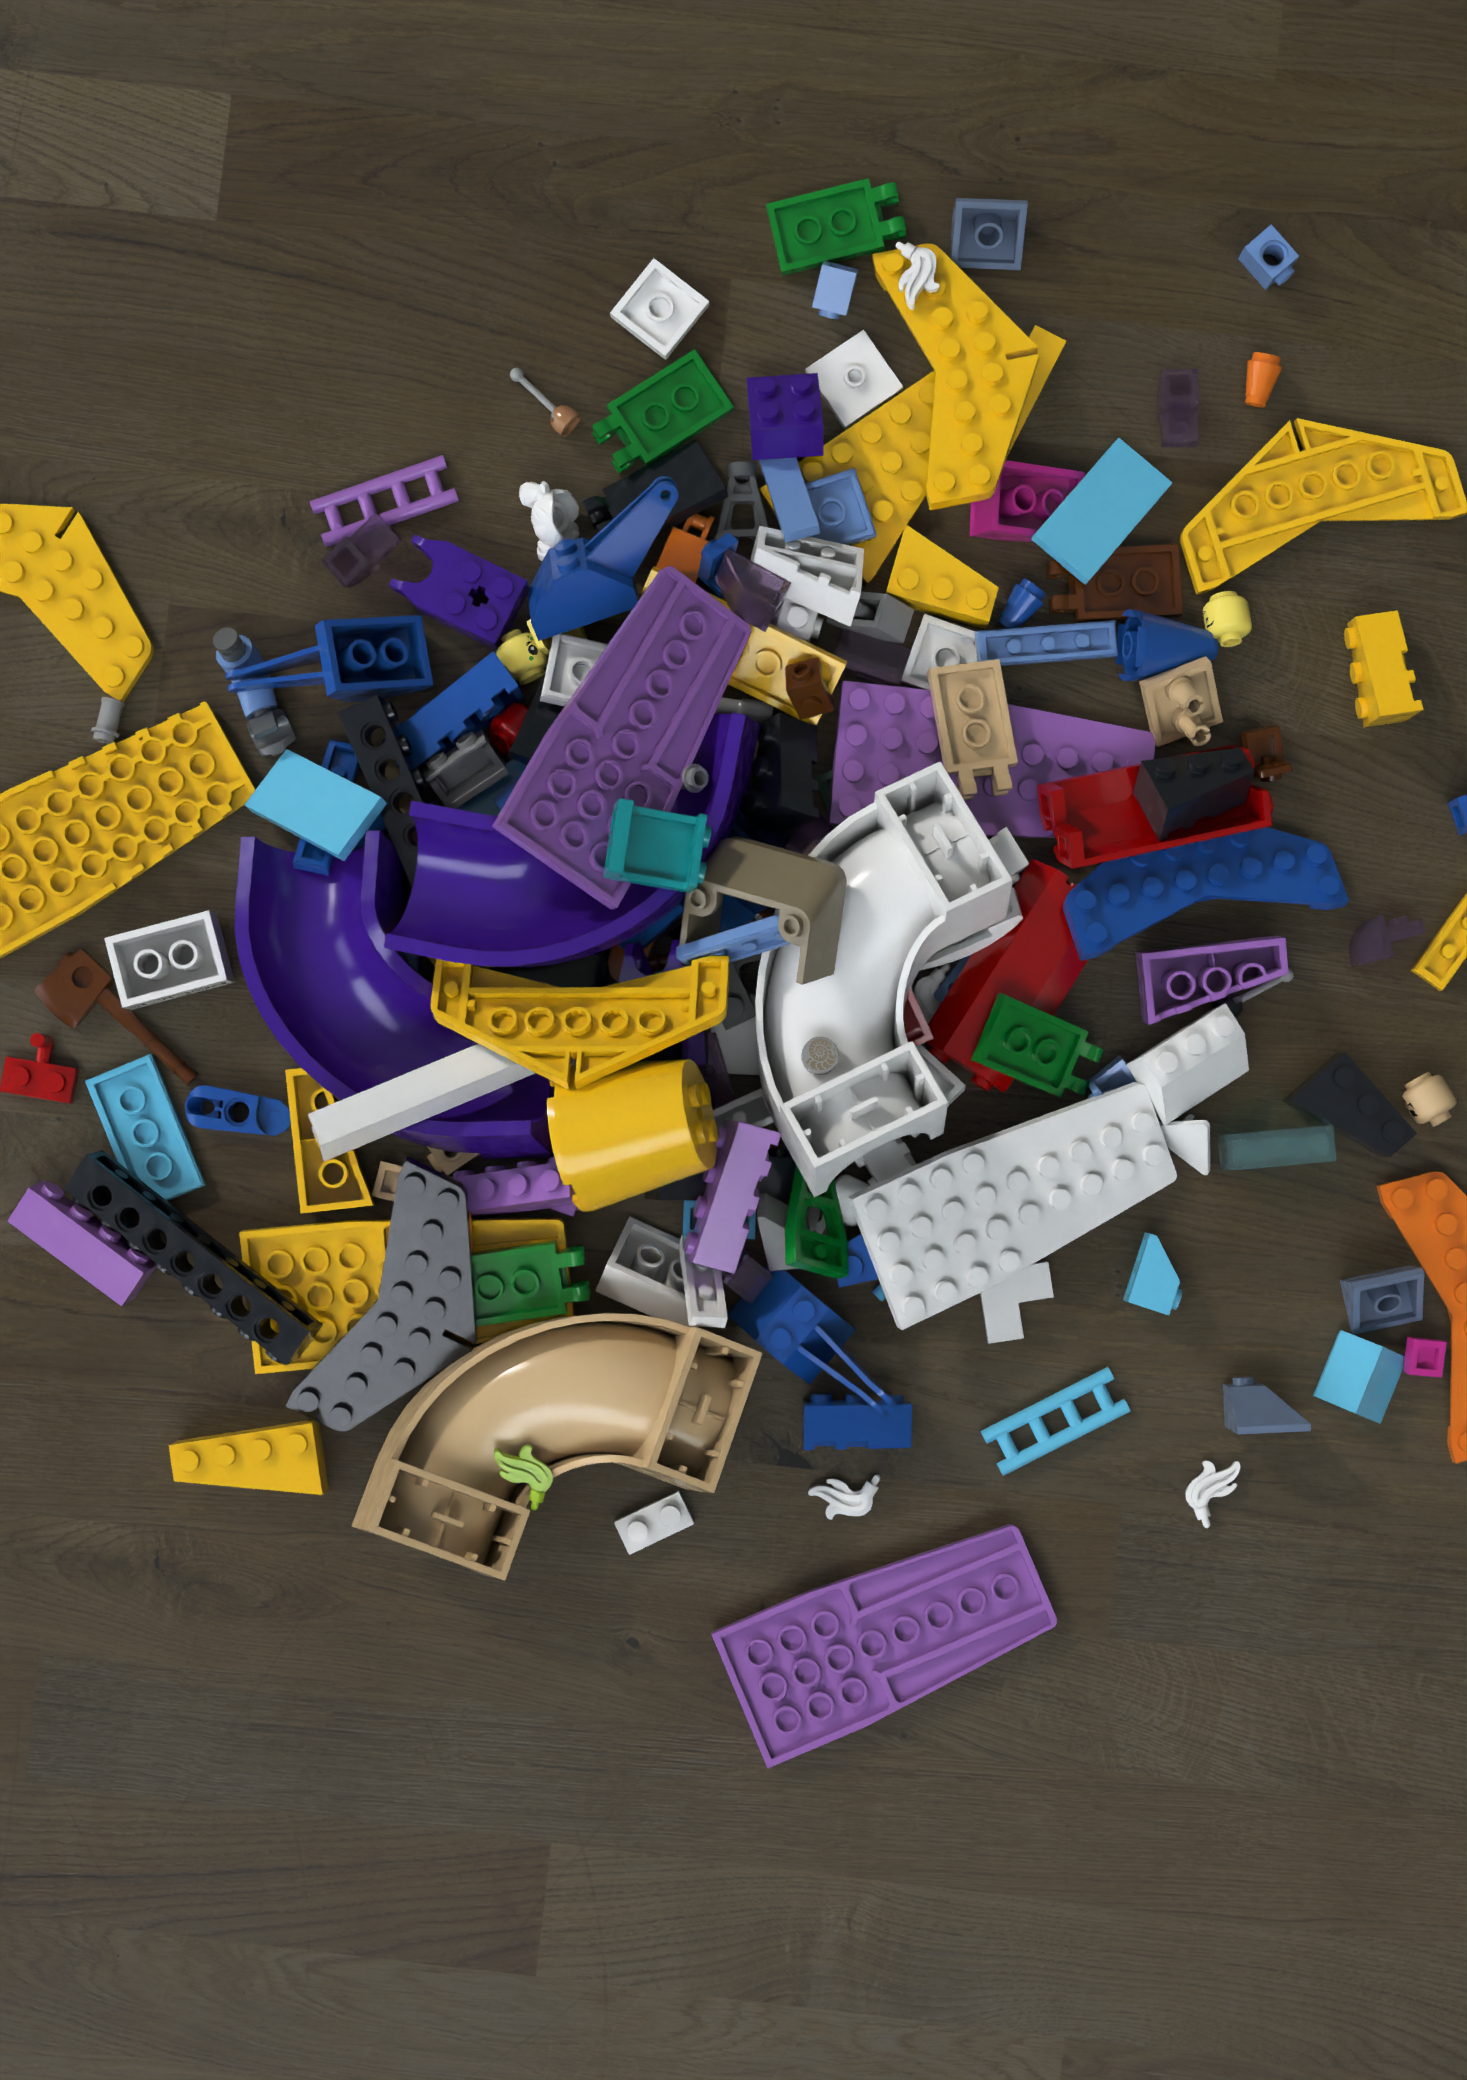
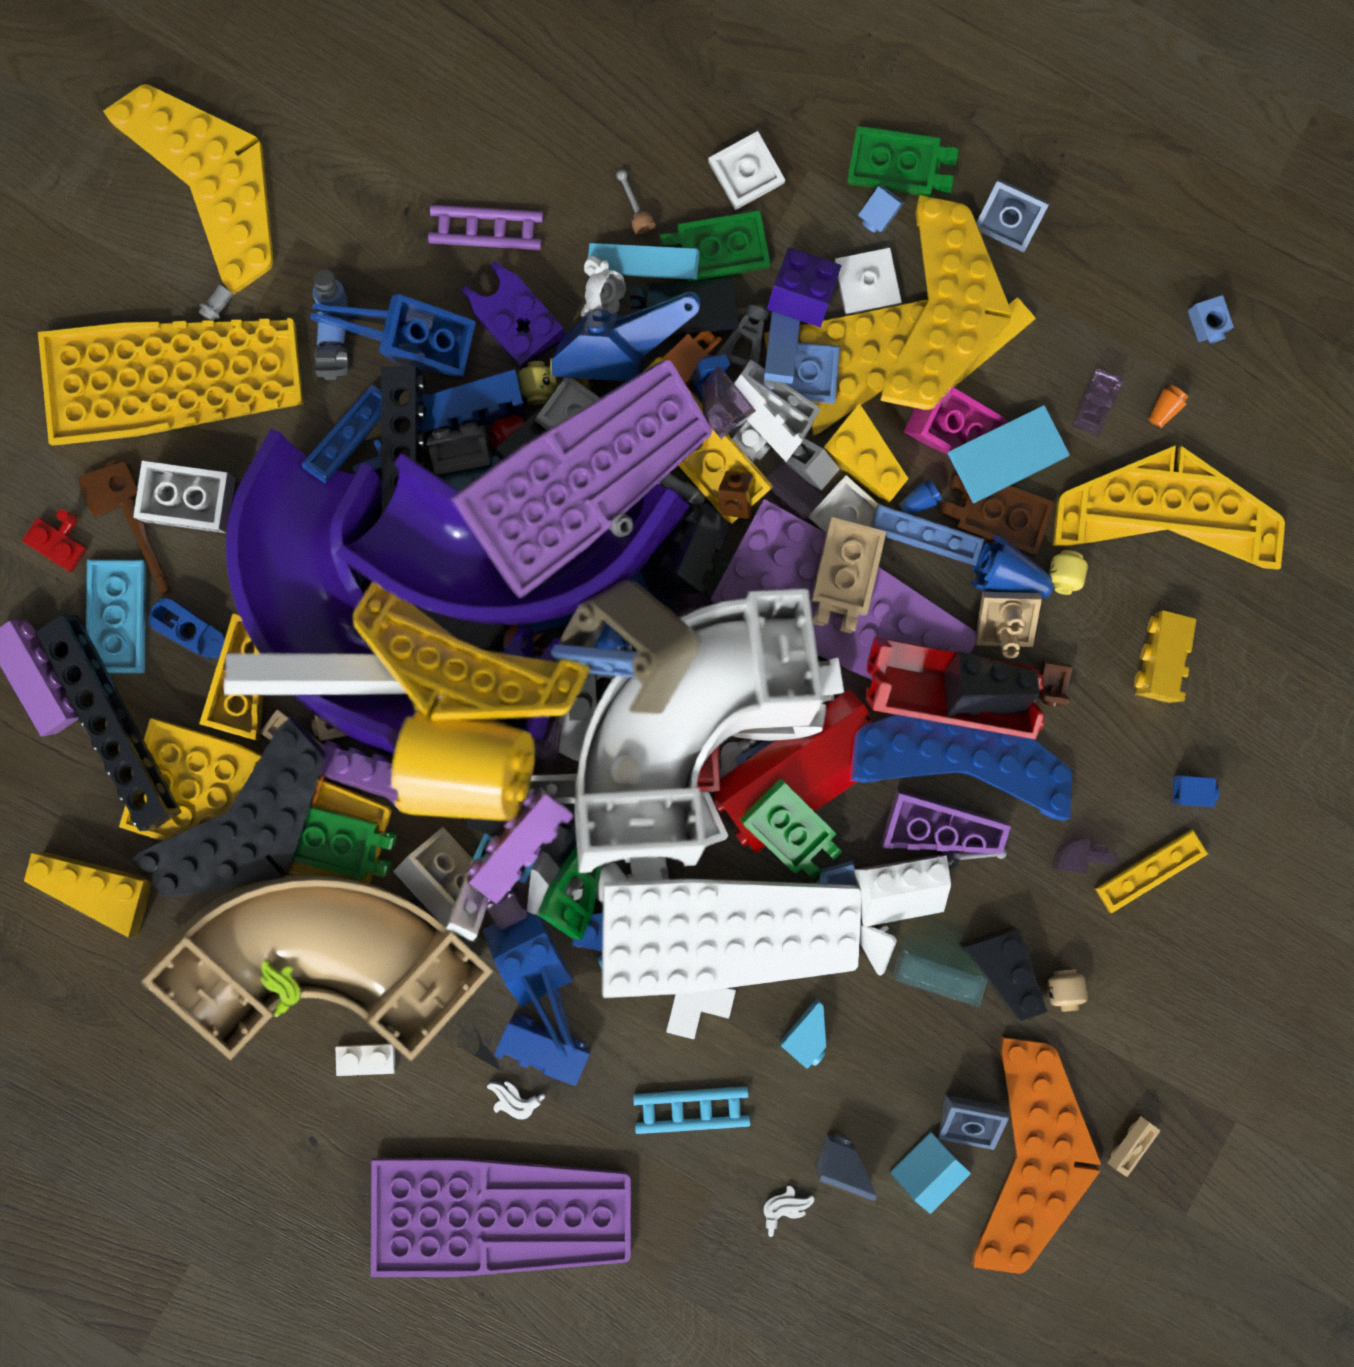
camera: 20 degrees right, 0 degrees up
(315, 804) = (337, 428): medium azure tile -> none
(360, 555) = (450, 259): clear purple brick -> none
(591, 461) = (648, 260): none -> medium azure tile
(656, 847) = (568, 565): teal panel -> none
(919, 275) = (947, 224): white piece -> none
(1424, 1357) = (983, 1178): dark pink plate -> none

